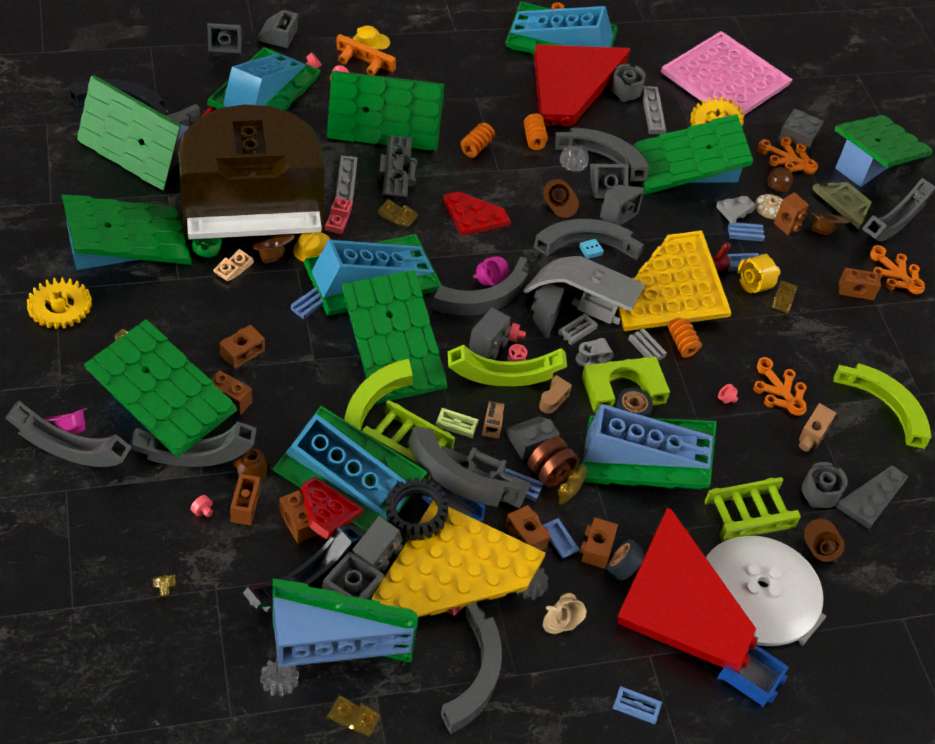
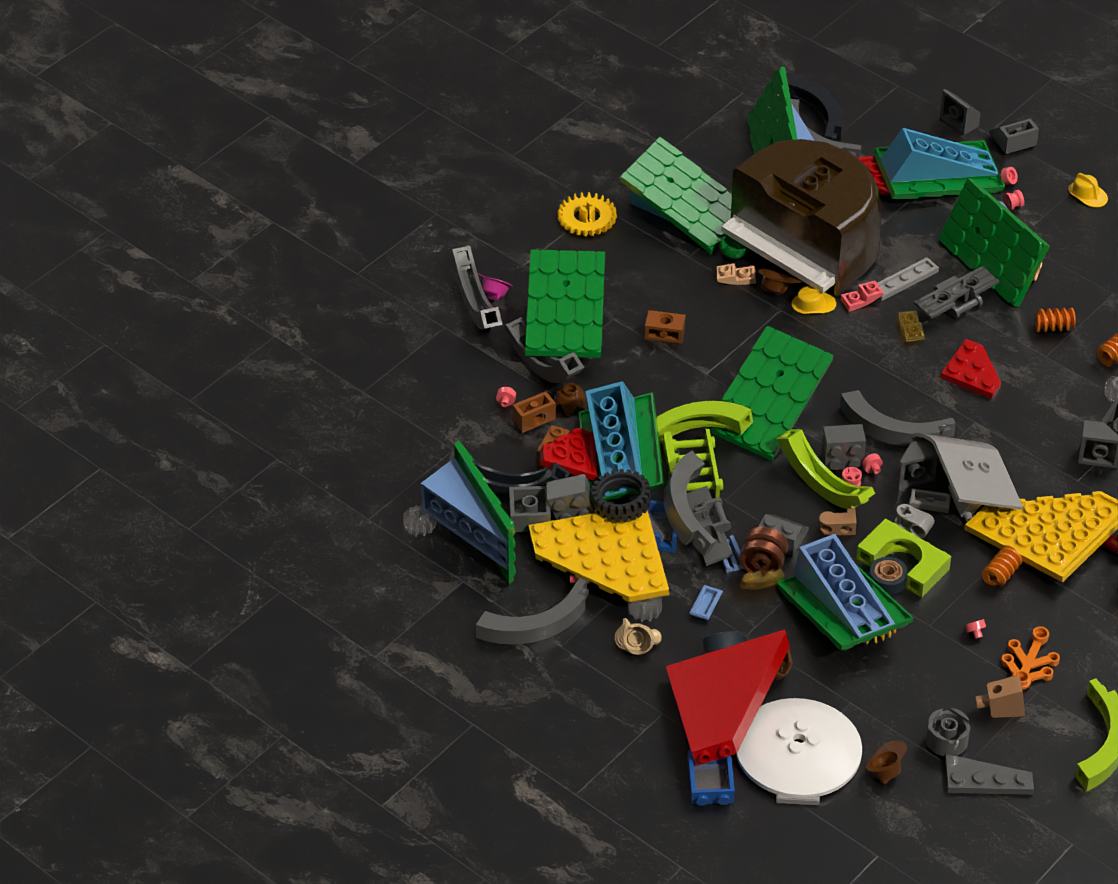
camera: 60 degrees right, 5 degrees down
(164, 583) = (425, 418): clear yellow tile -> none
(238, 392) = (615, 346): dark orange brick -> none
(306, 301) = (749, 336): medium blue tile -> none
(353, 717) = (433, 576): clear yellow slope -> none
(356, 261) = (856, 356): dark azure piece -> none
(371, 55) = (1061, 191): orange plate -> none
(456, 425) = (748, 495): yellowish green tile -> none
(492, 271) = (918, 410): dark pink piece -> none
(493, 419) = (770, 501): medium nougat leg -> none
(524, 519) = (689, 578): dark orange brick -> none
(561, 198) = (1057, 406): reddish brown piece -> none
(584, 230) = (1039, 440): dark grey arch -> none
(591, 248) = (1030, 460): medium azure tile -> none
(598, 553) = (727, 620): dark orange brick -> none
(636, 708) = (614, 739): medium blue tile -> none
(649, 345) = (969, 541): light grey tile -> none
(752, 526) = (862, 715): lime fence -> none

